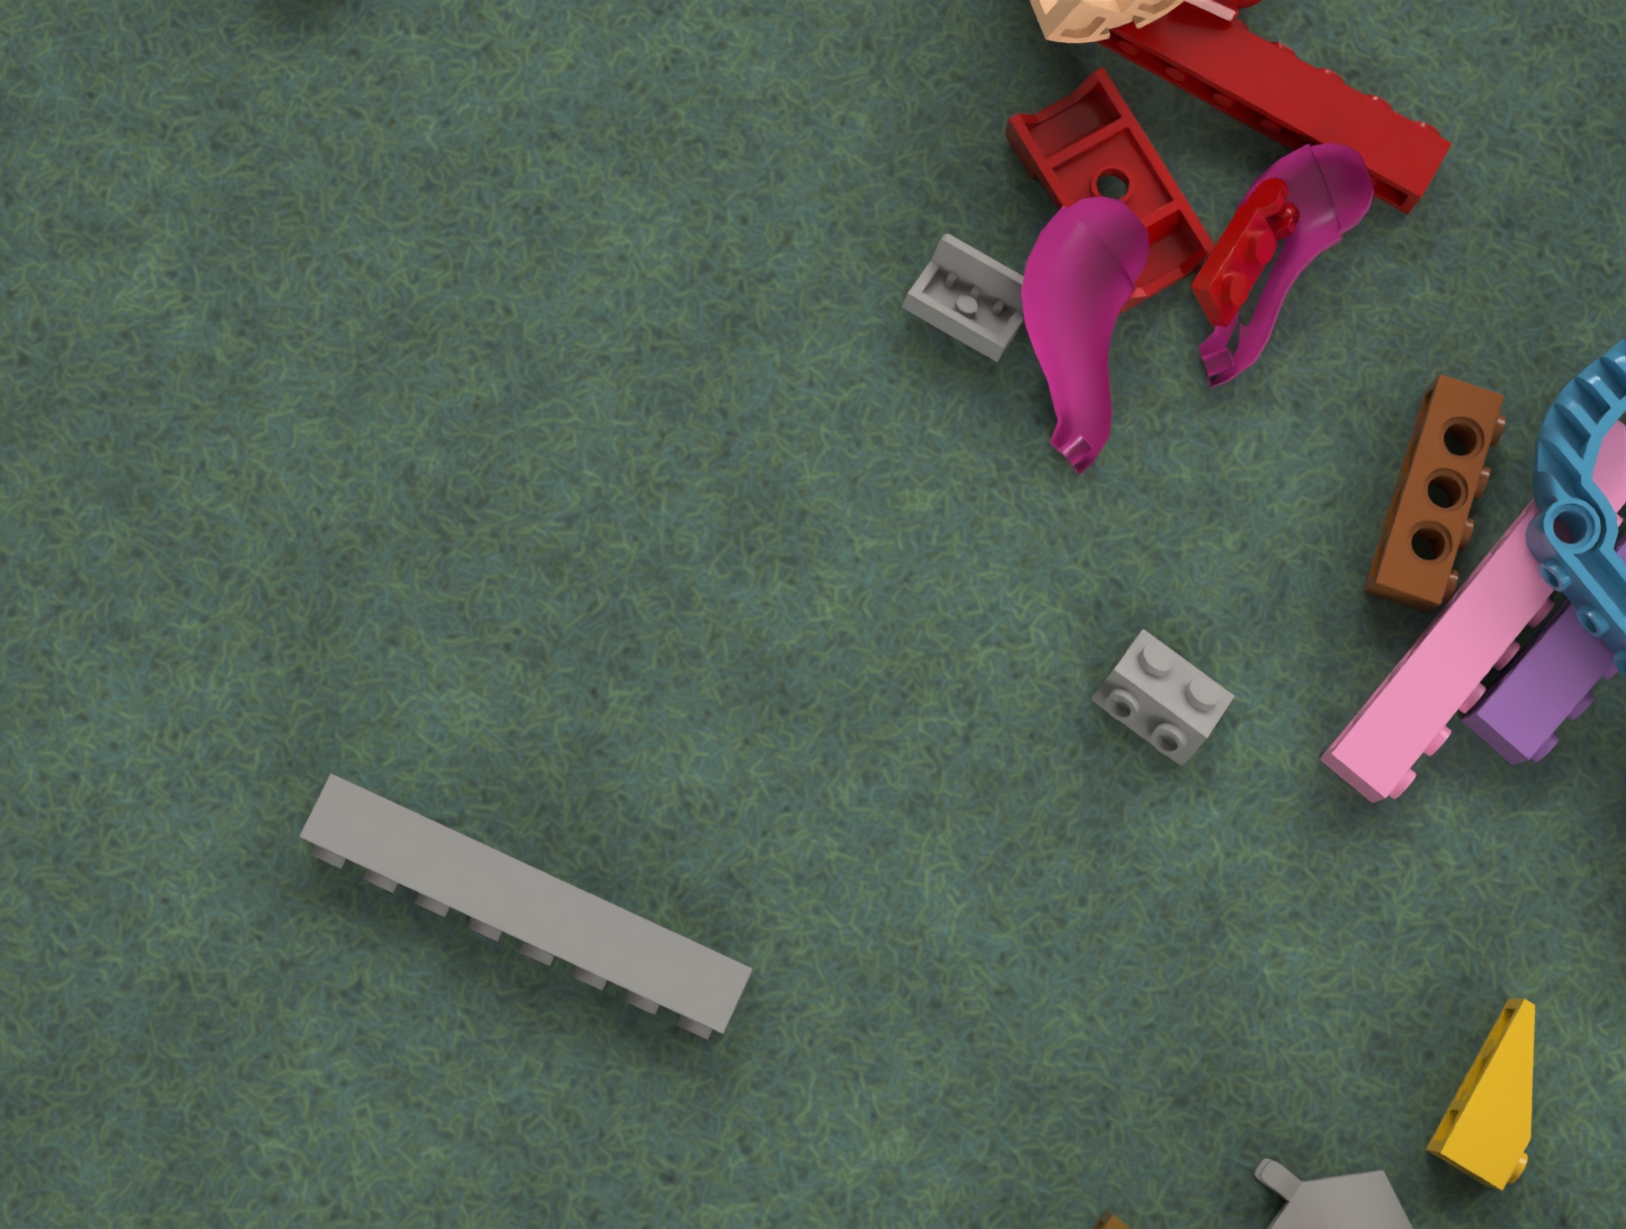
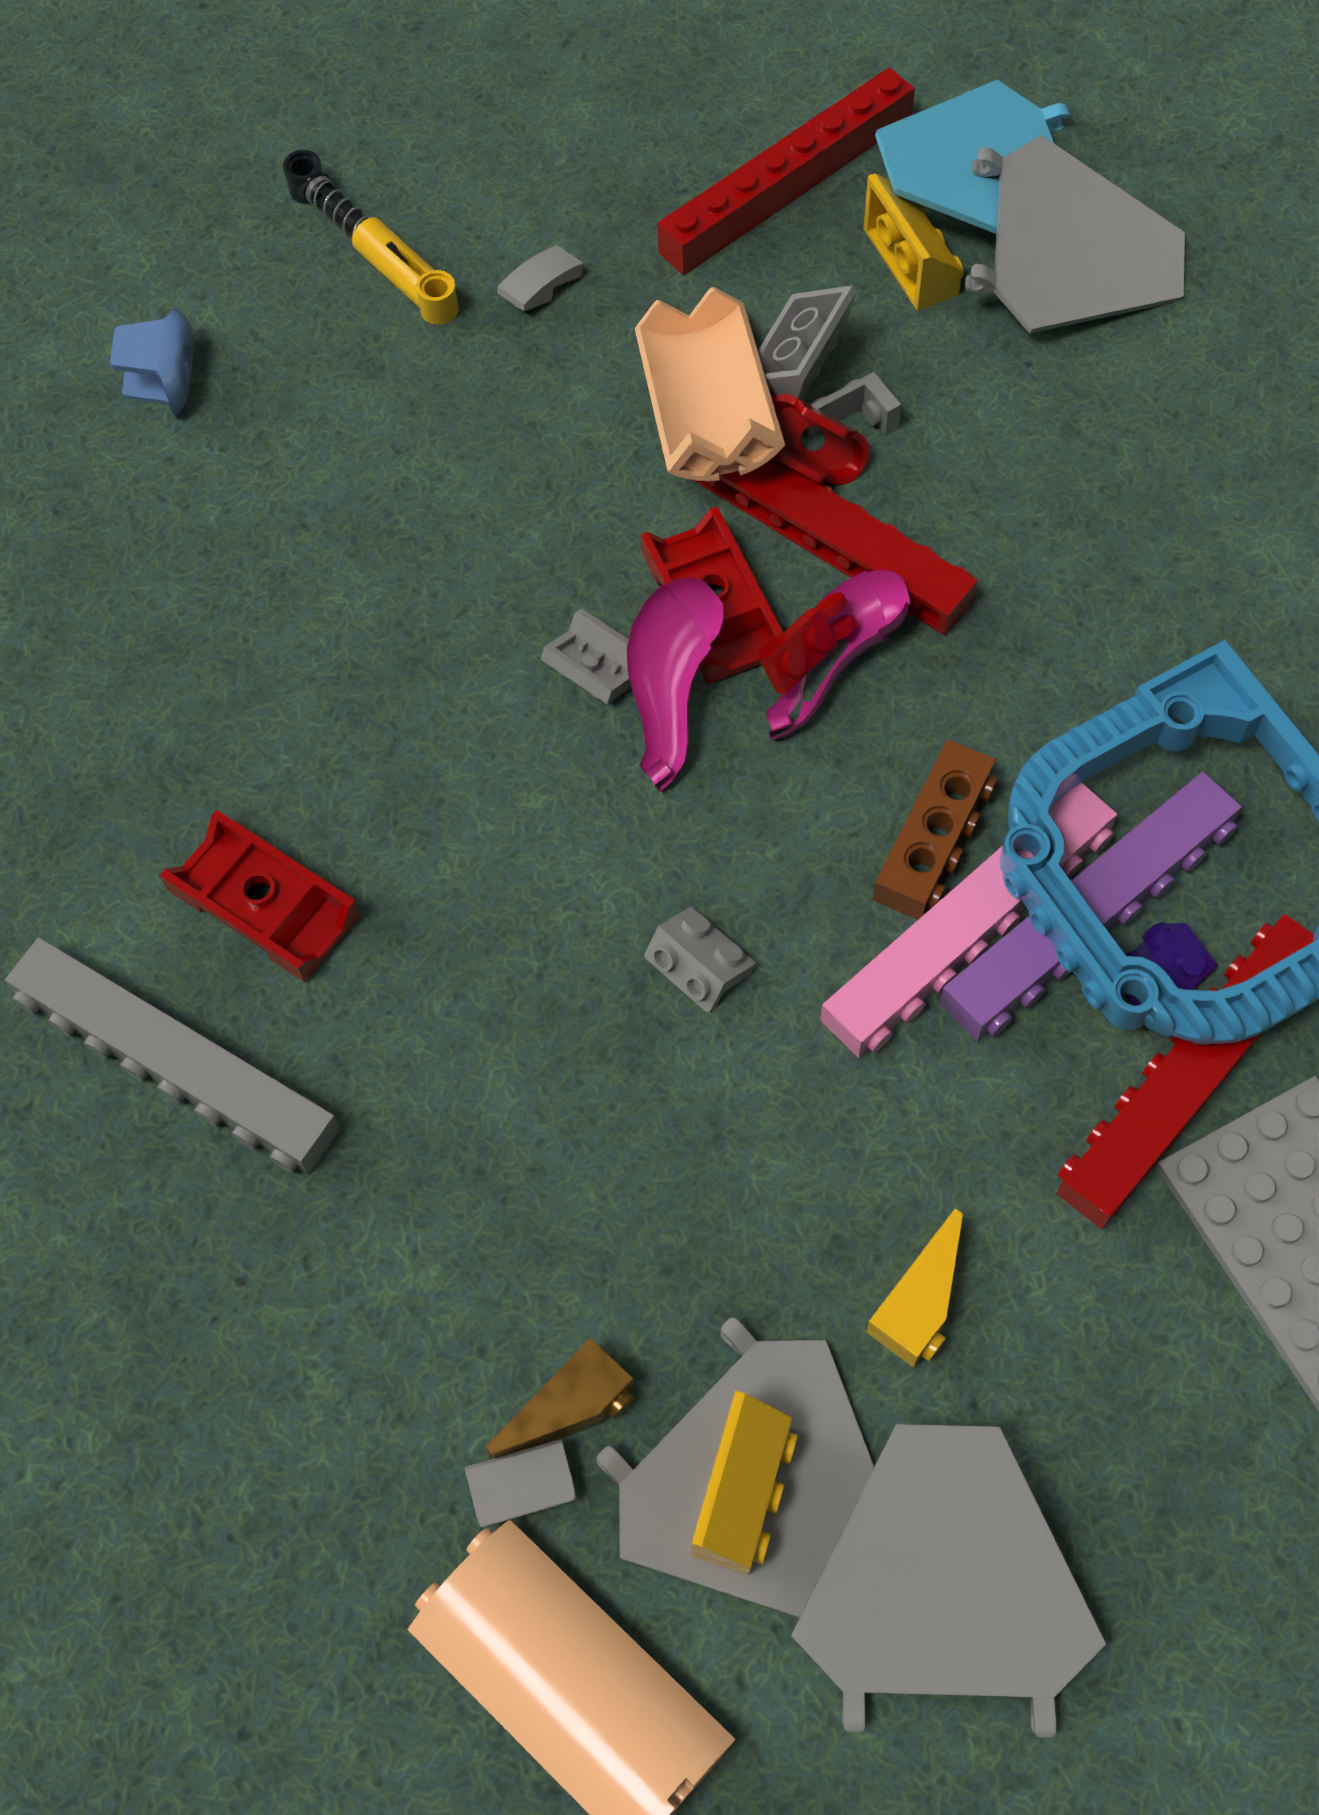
camera: 15 degrees right, 15 degrees down
(646, 714) = (292, 923): none -> red piece

